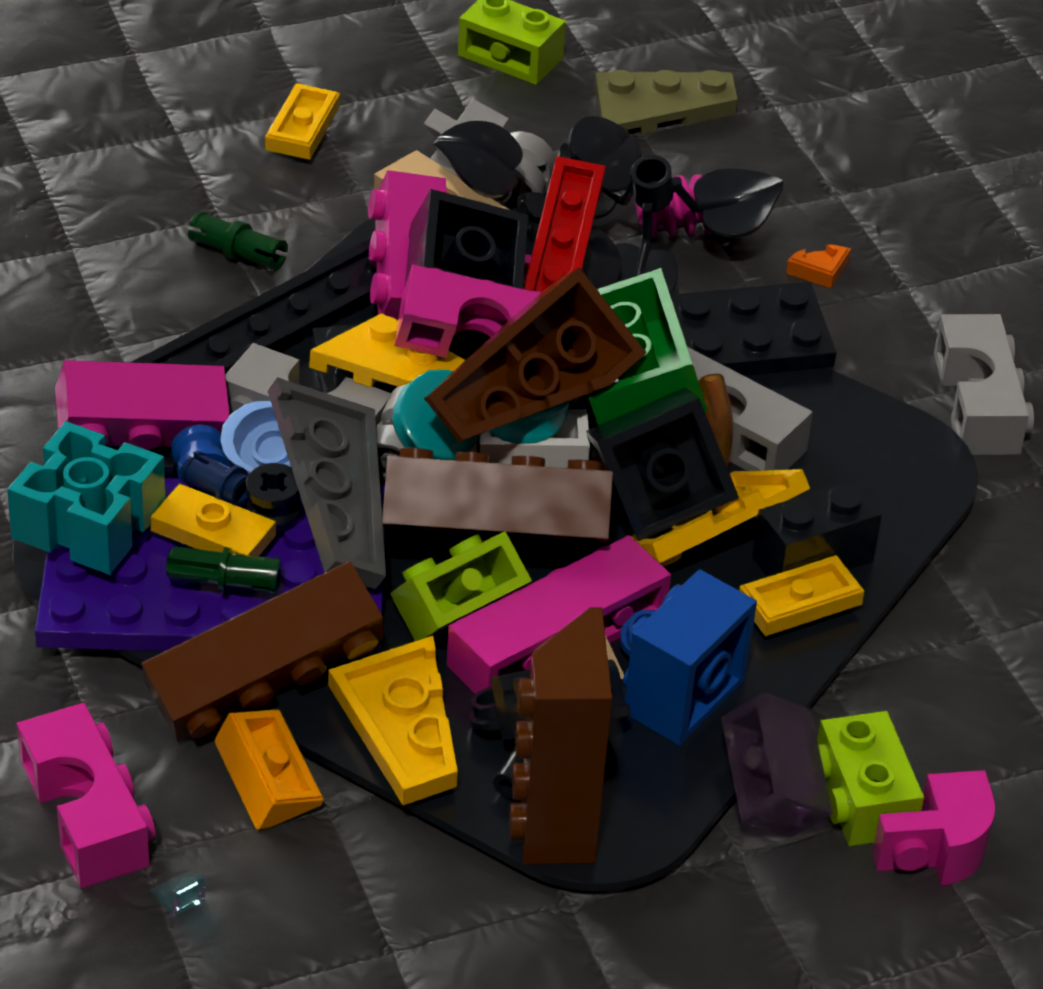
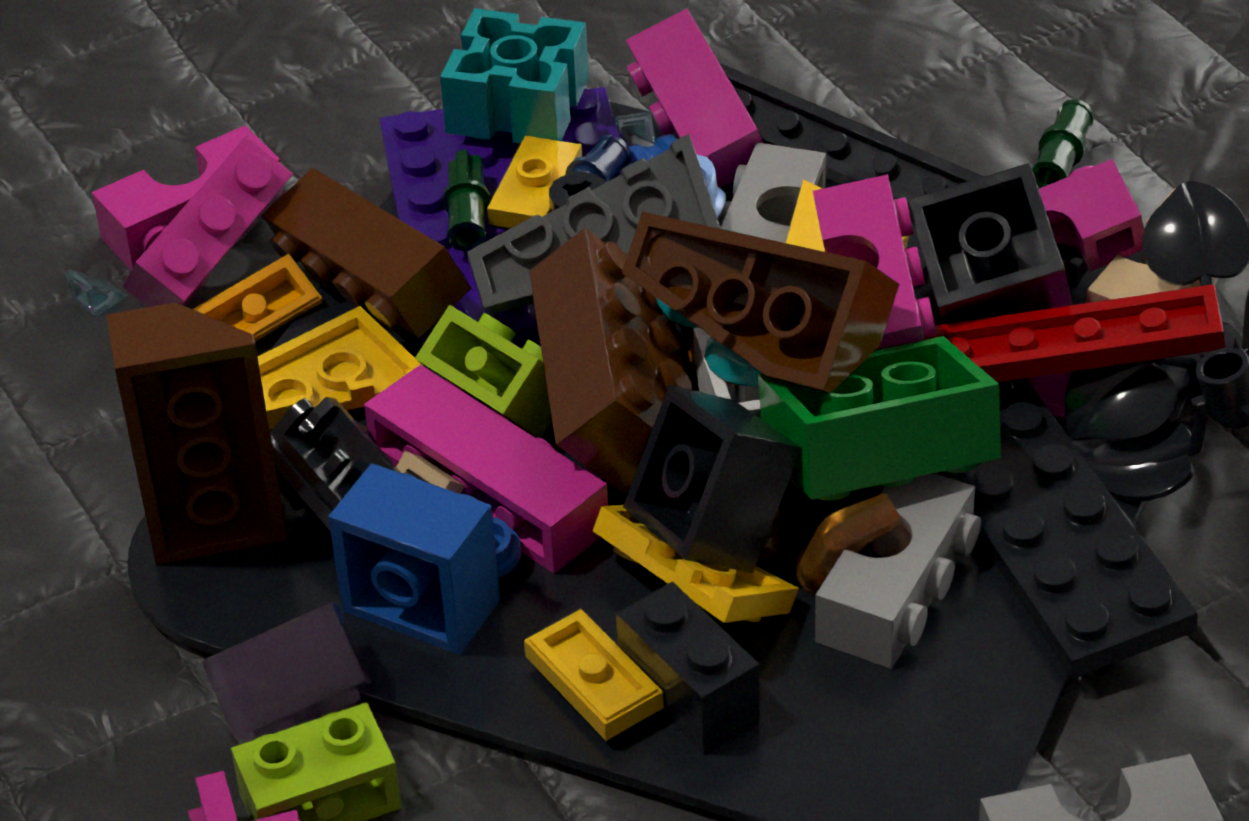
camera: 85 degrees right, 0 degrees up
(218, 787) = (208, 227): none -> dark pink arch

